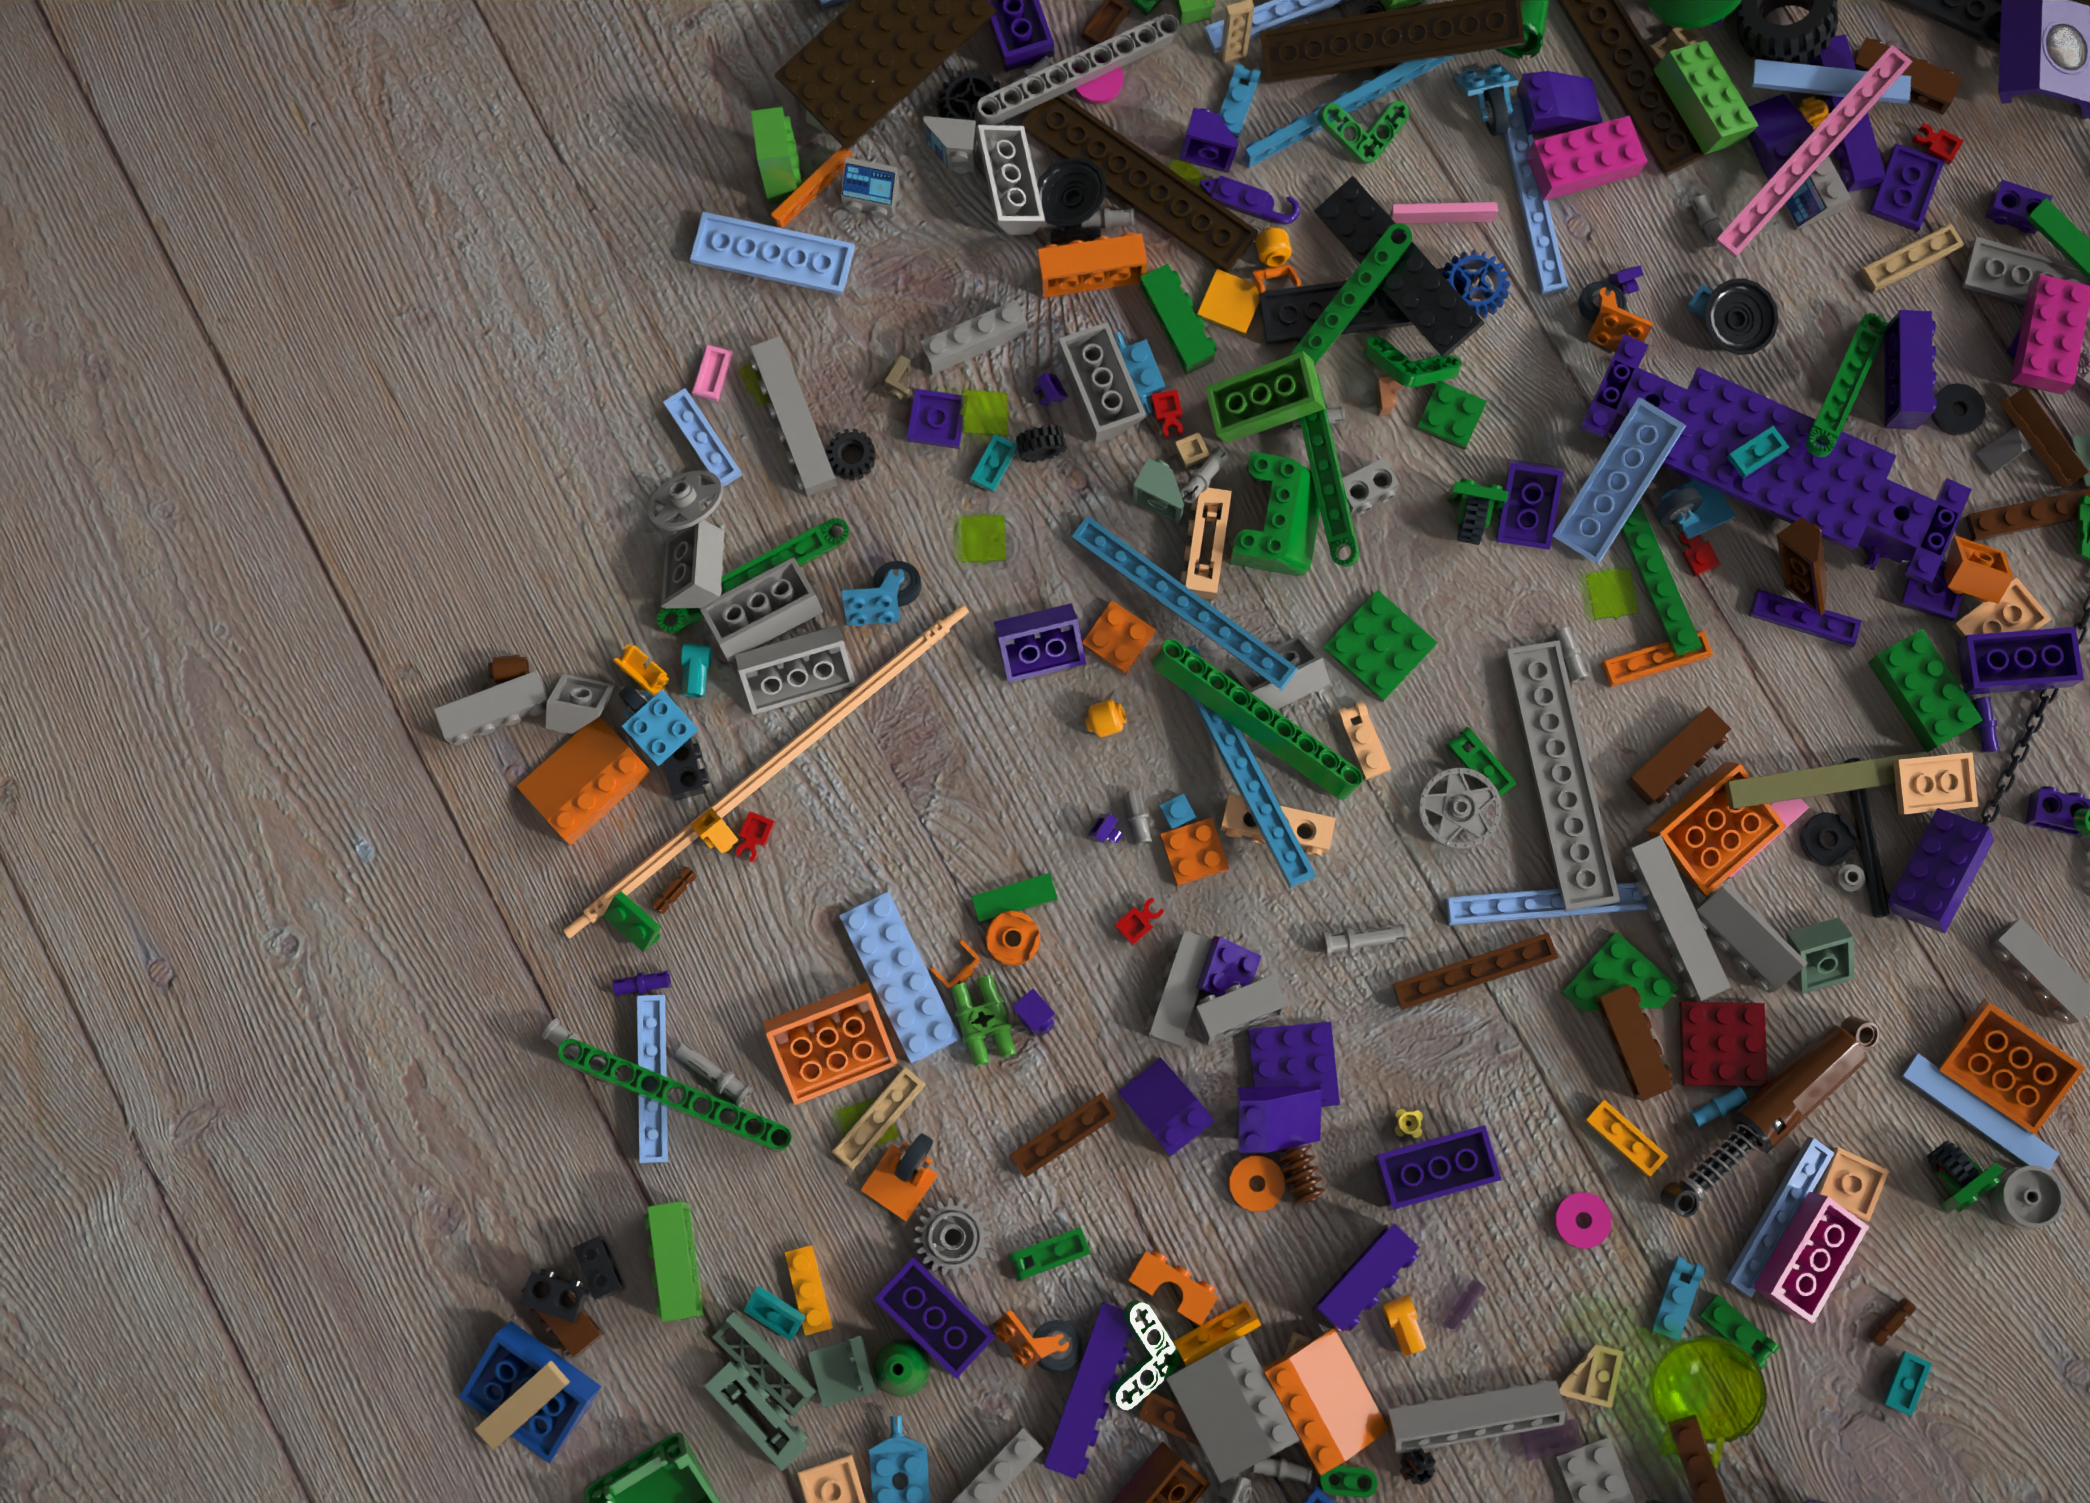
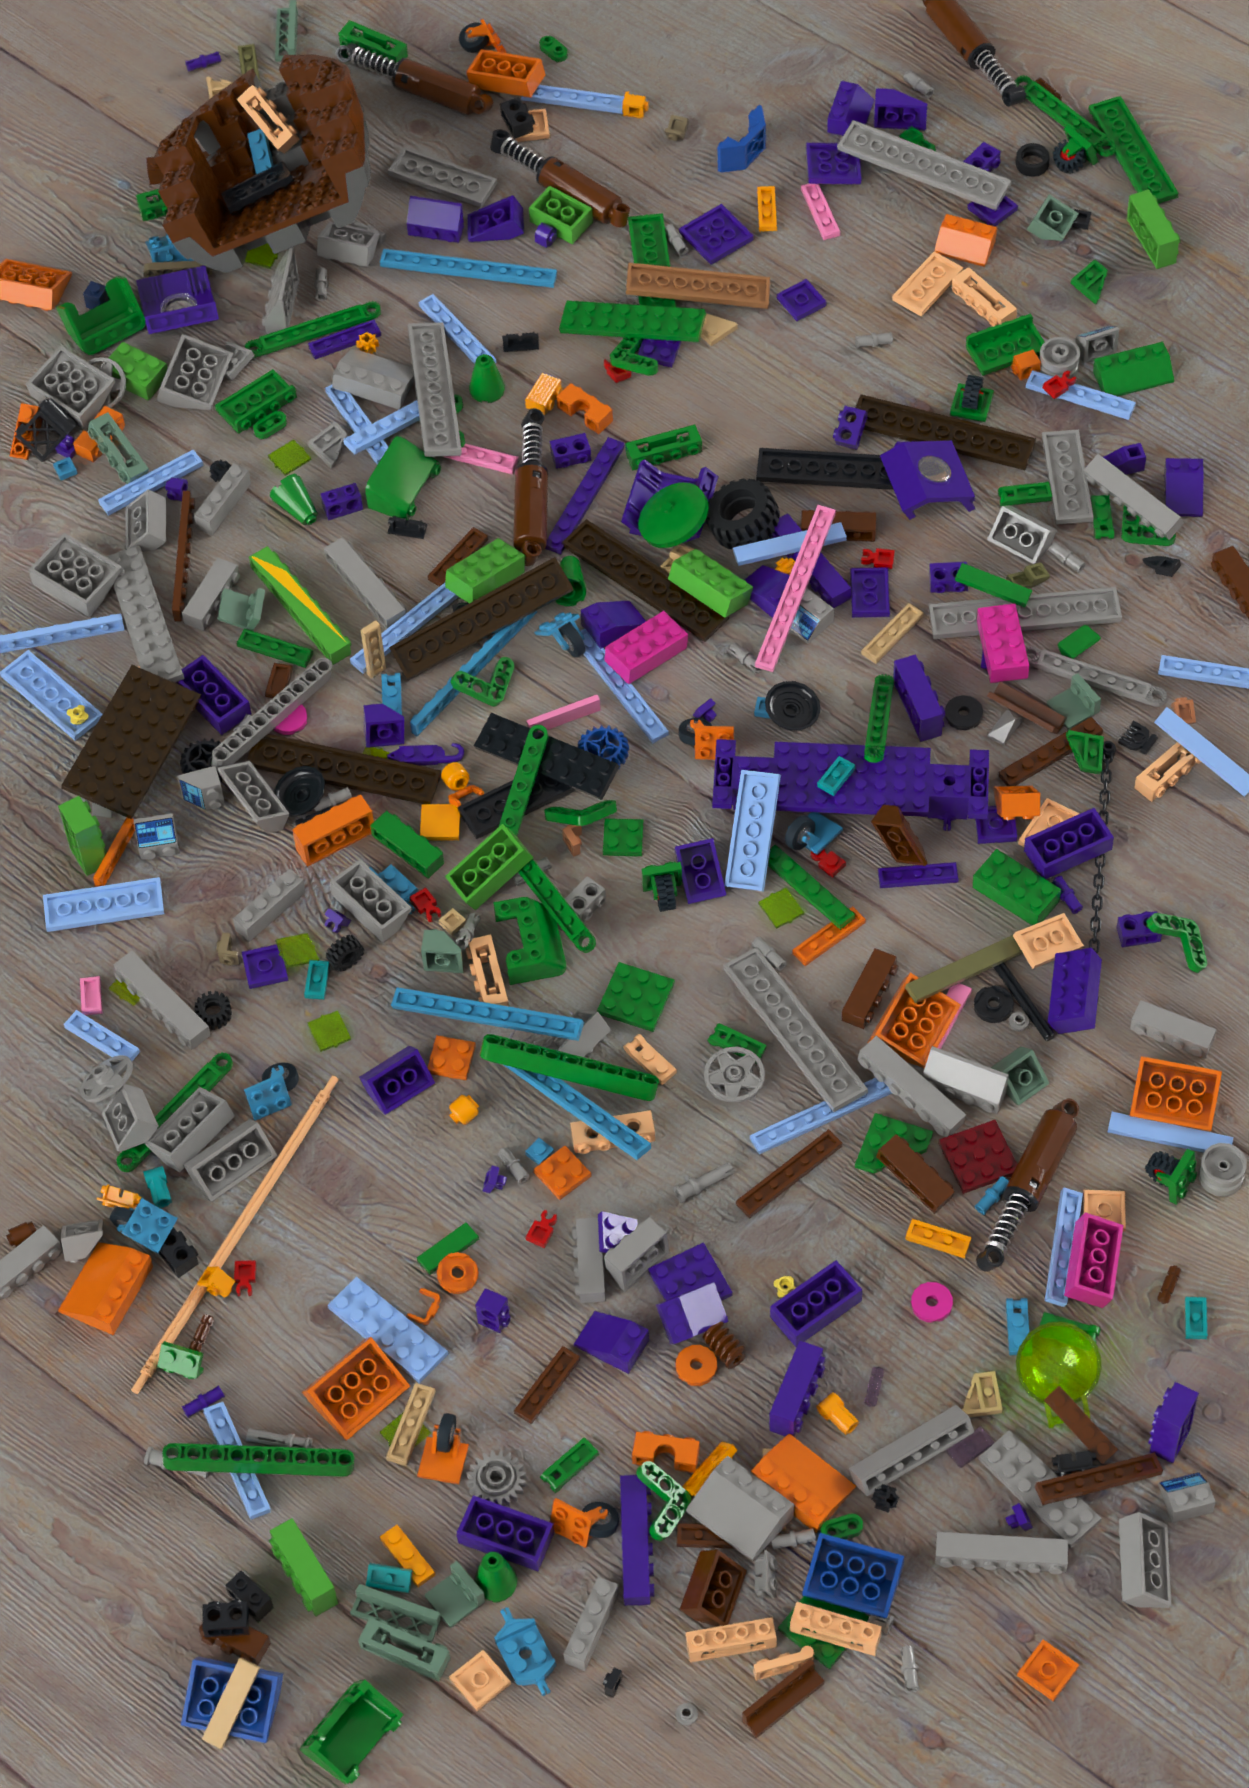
camera: 20 degrees left, 20 degrees down
(991, 1007) = (462, 1324): bright green pin -> none

